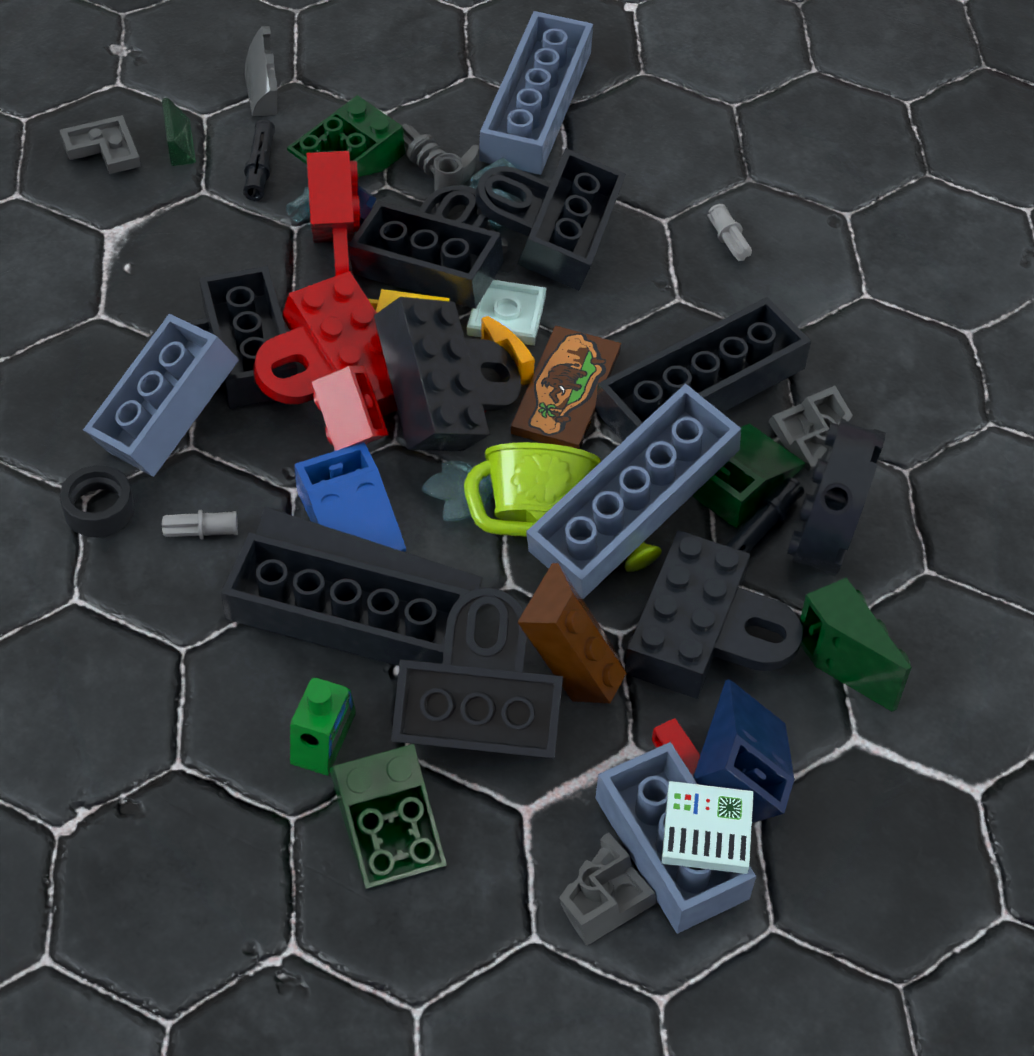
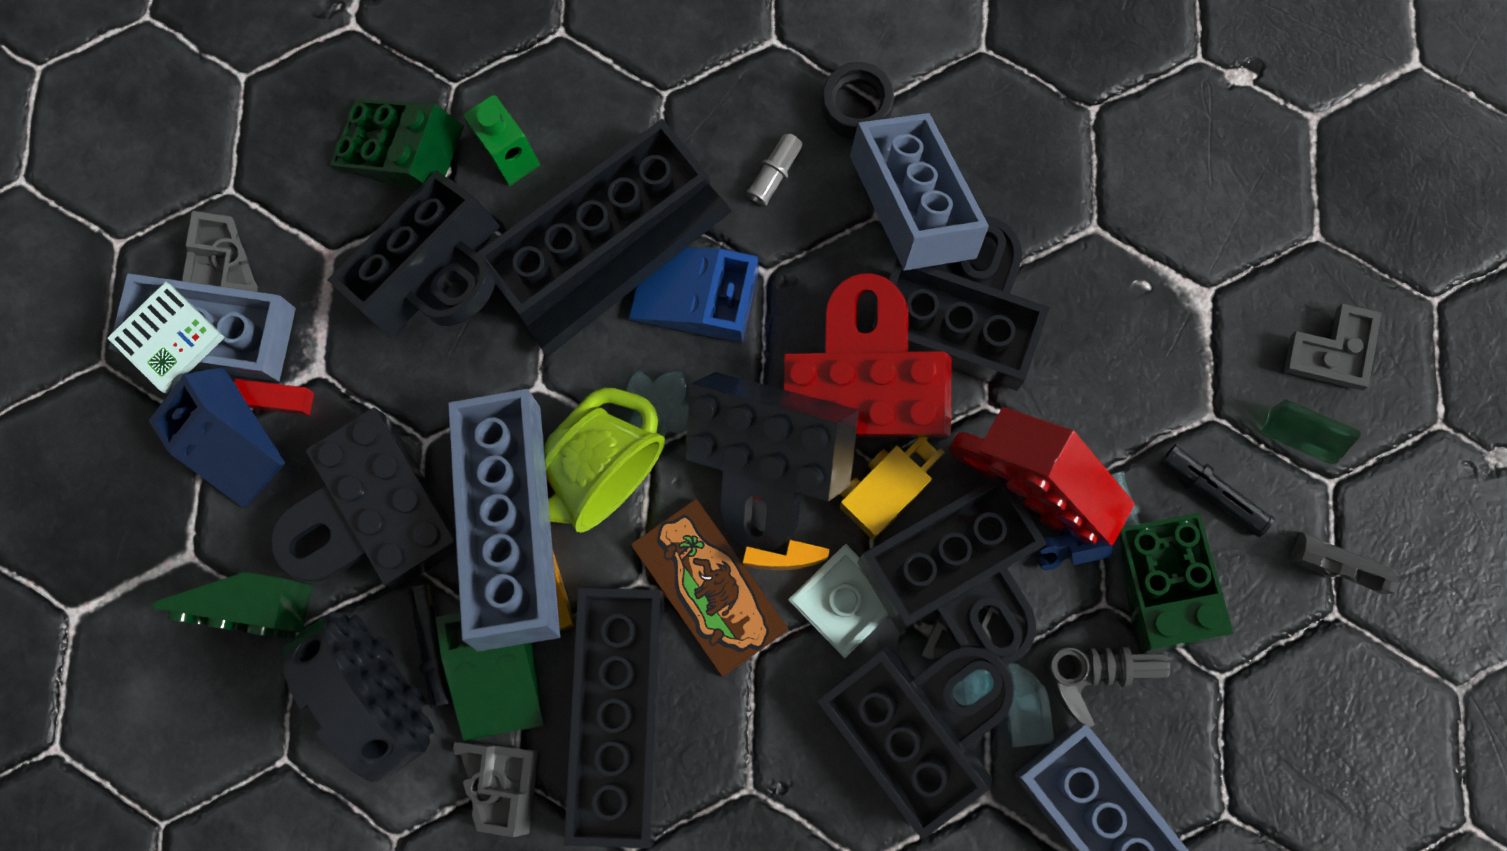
camera: 135 degrees right, 25 degrees up
(349, 407) = (780, 335): brick -> none
(571, 640) = (407, 364): reddish brown slope -> none

